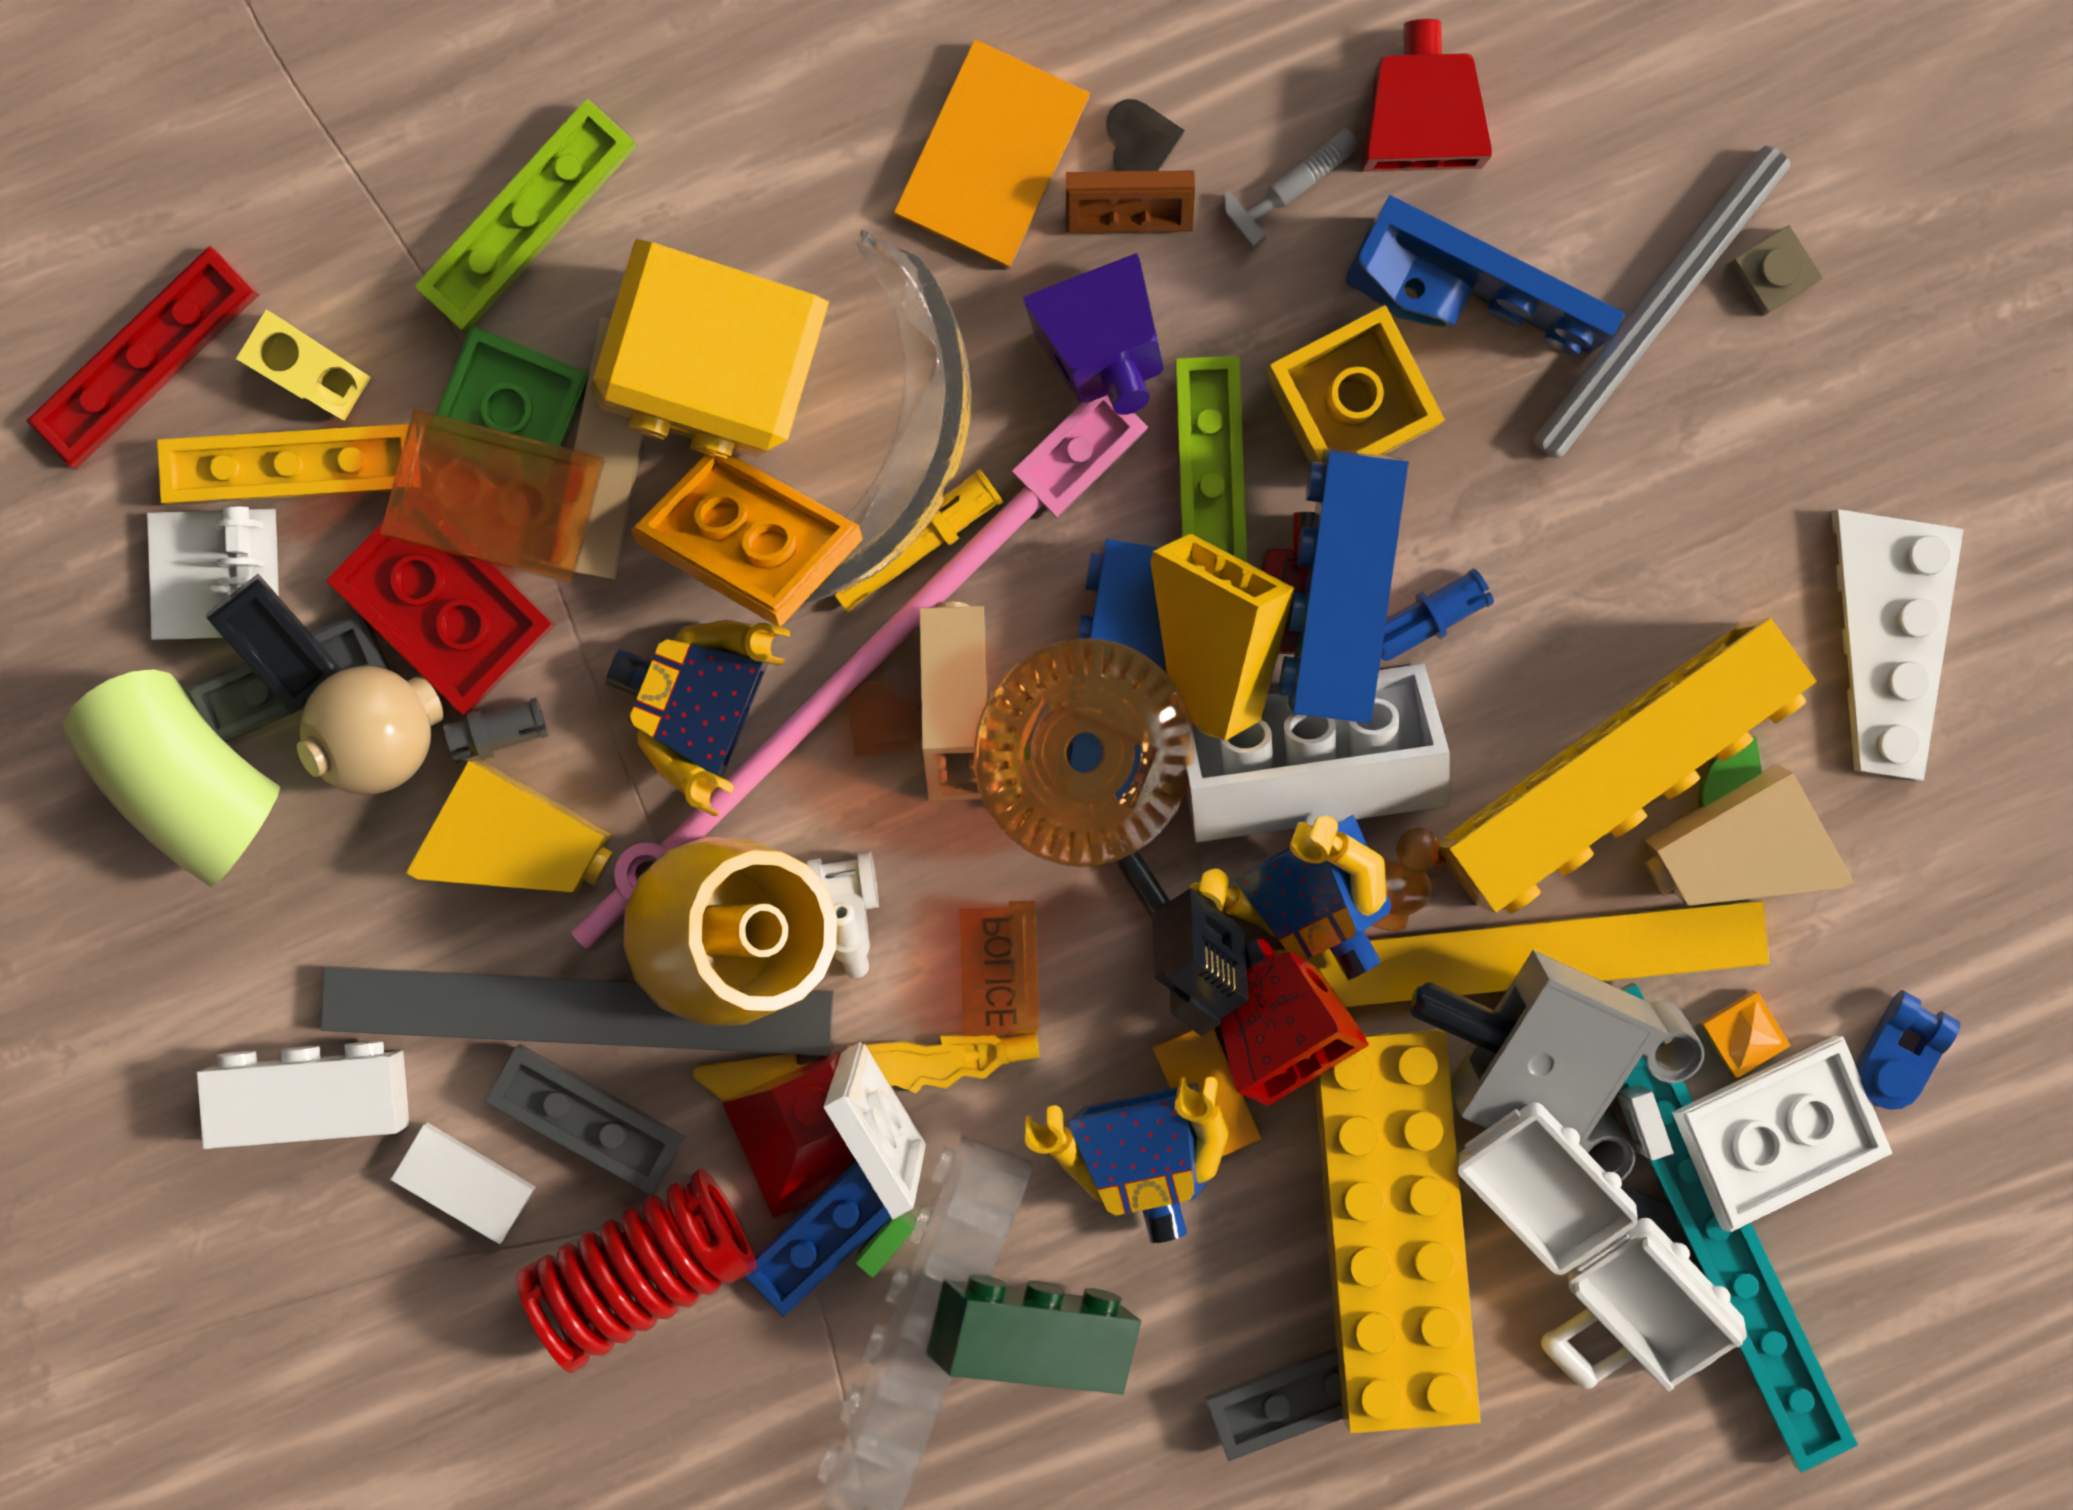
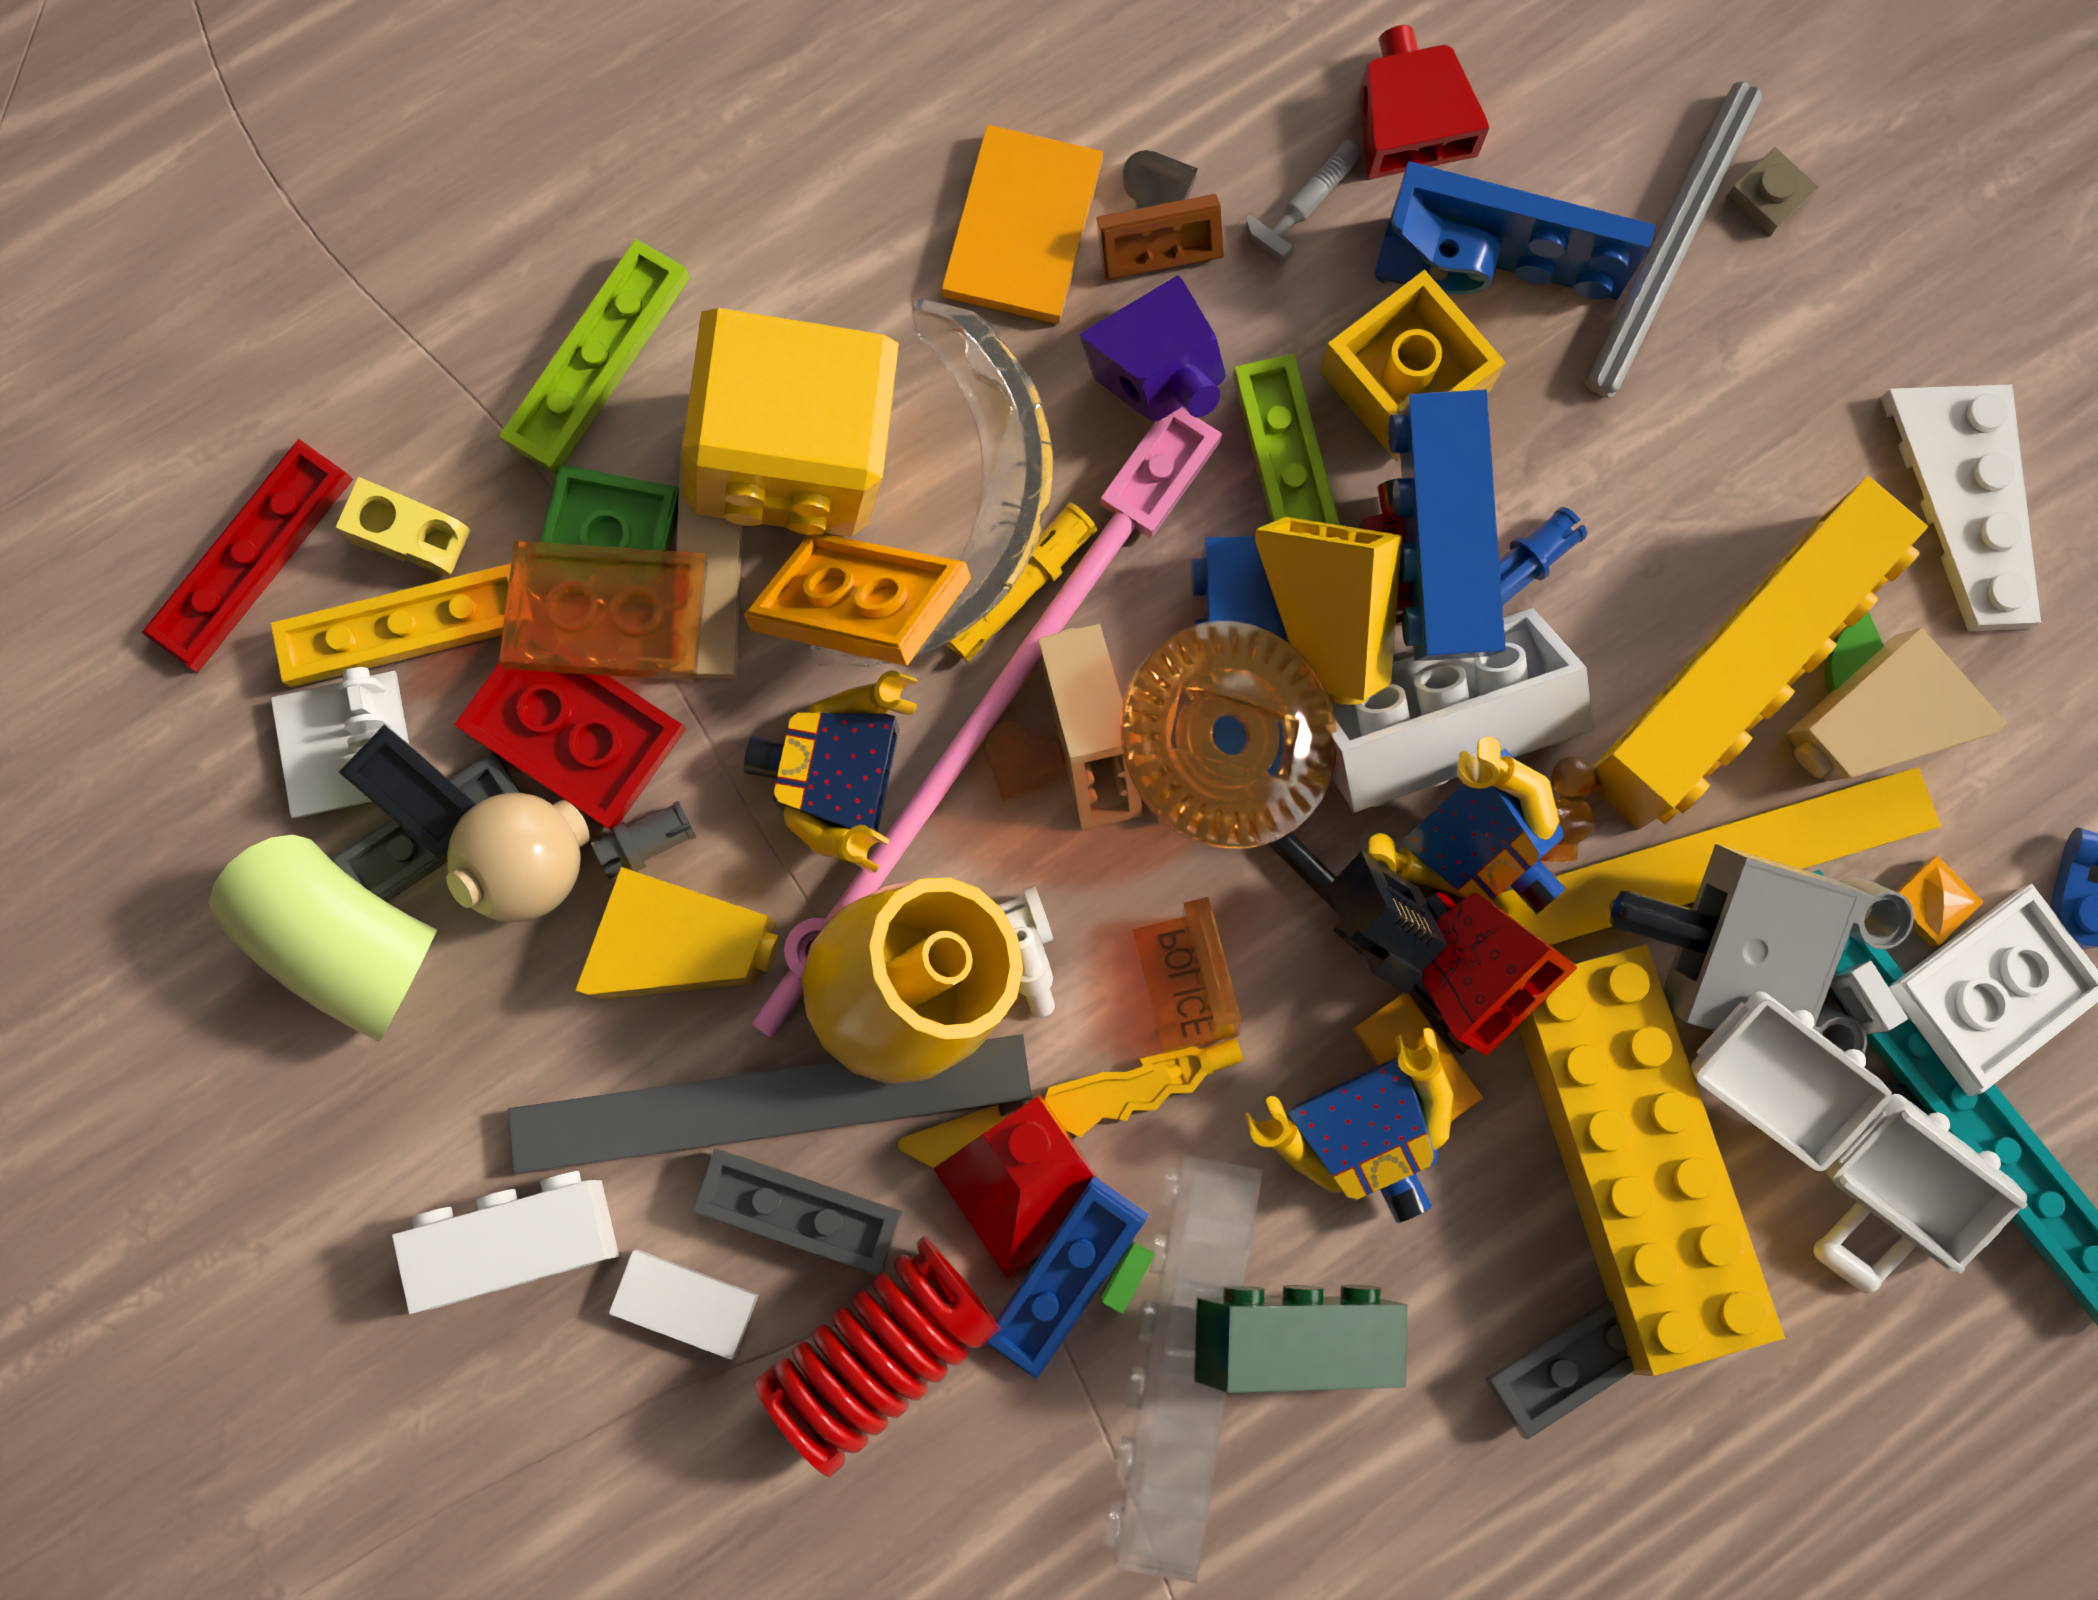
camera: 10 degrees left, 10 degrees down
(876, 1129) = (1099, 1152): white tile -> none

